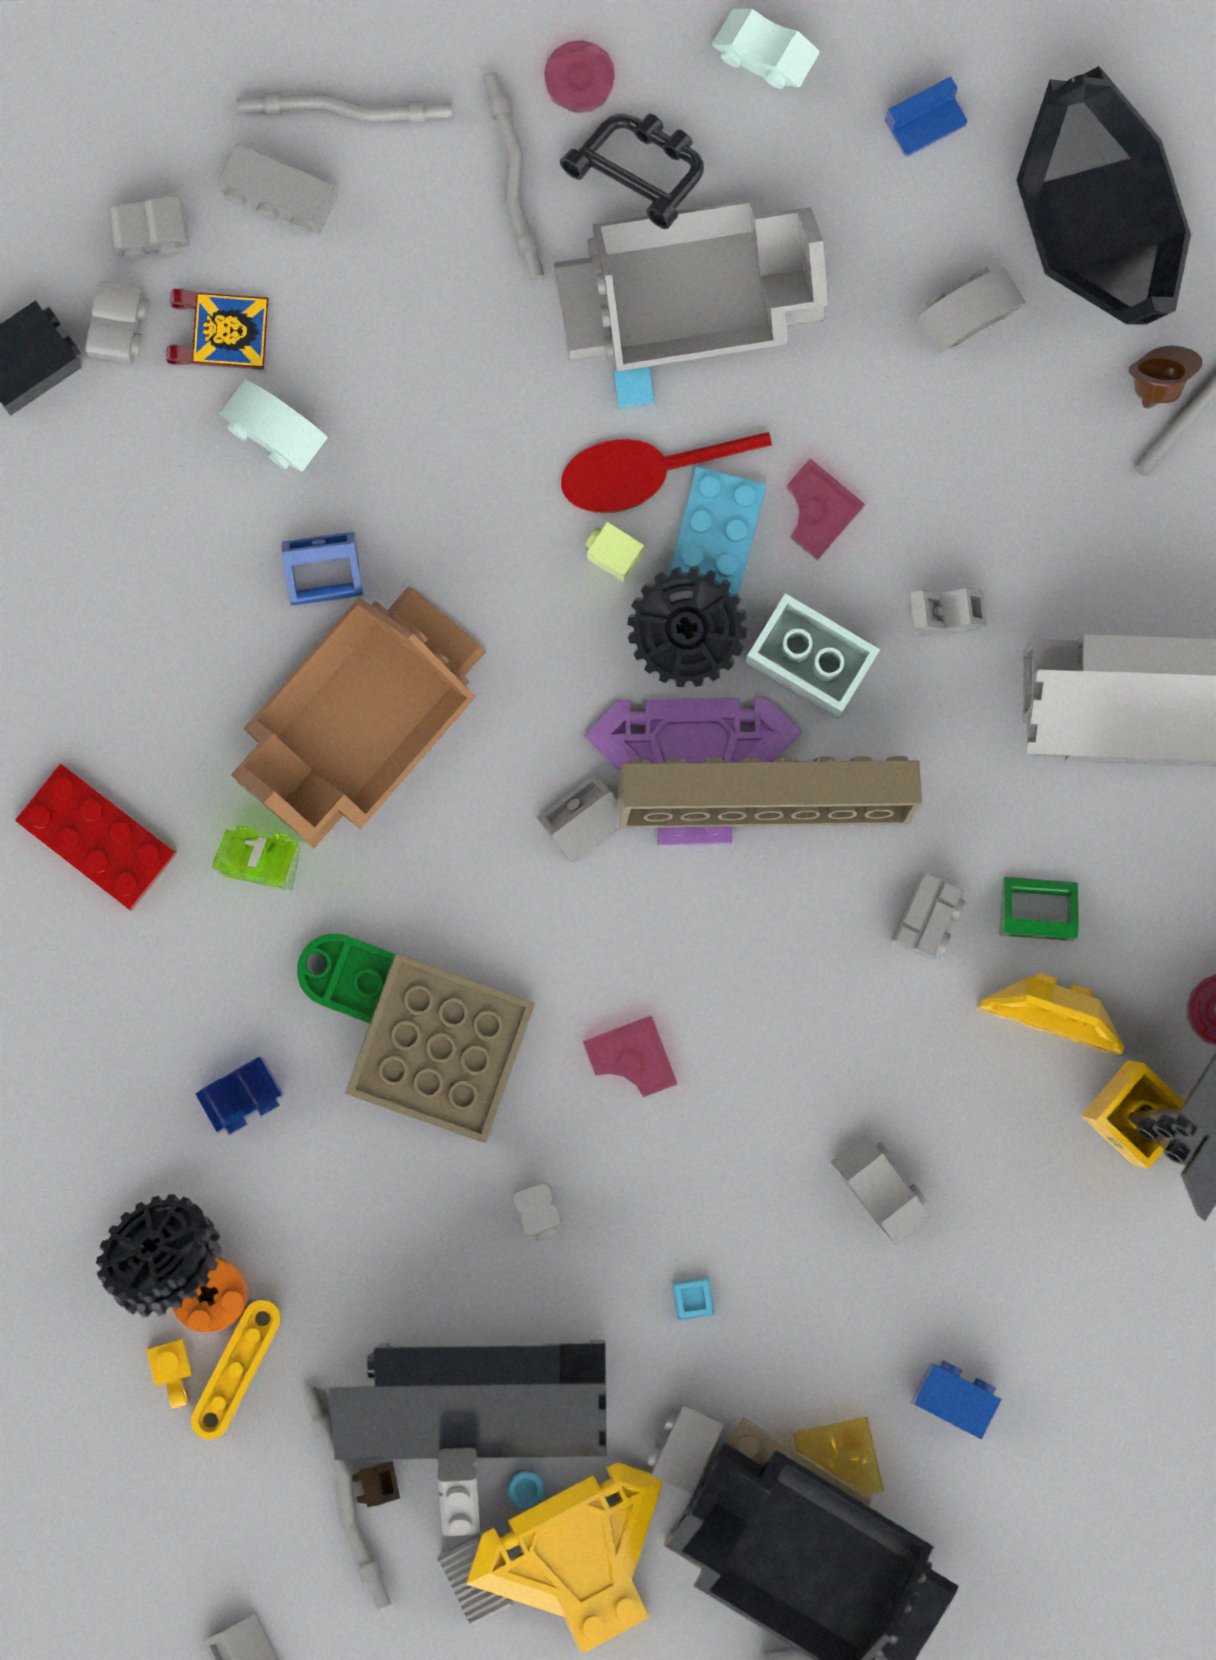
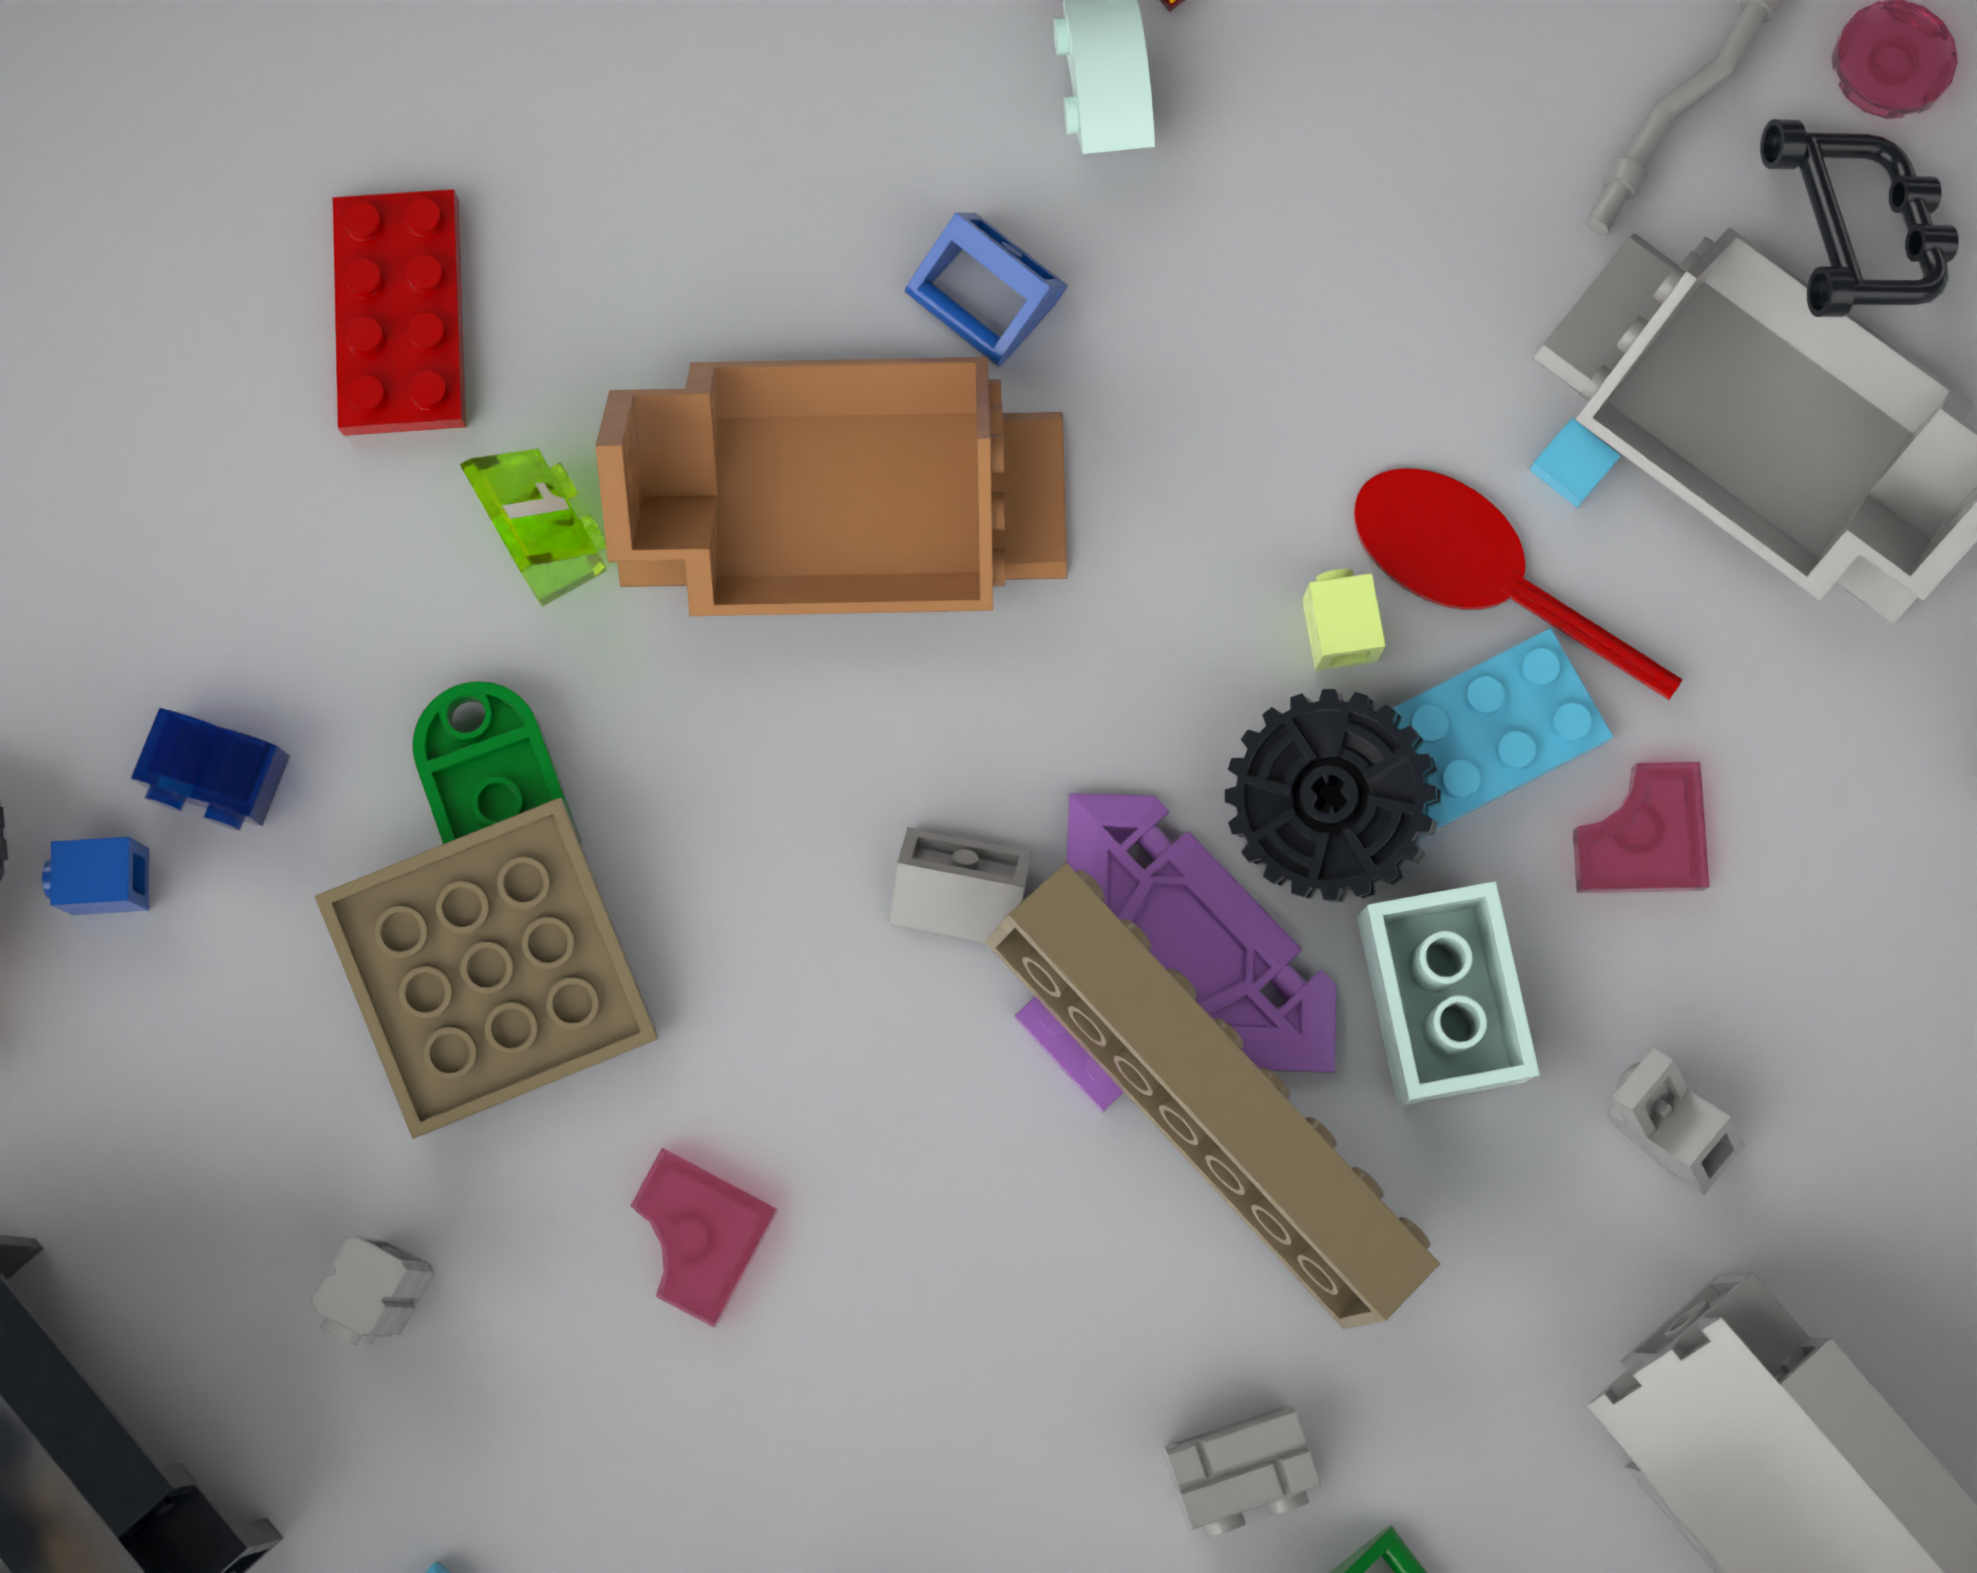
camera: 50 degrees right, 5 degrees down
(245, 1184) = (97, 876): none -> blue brick

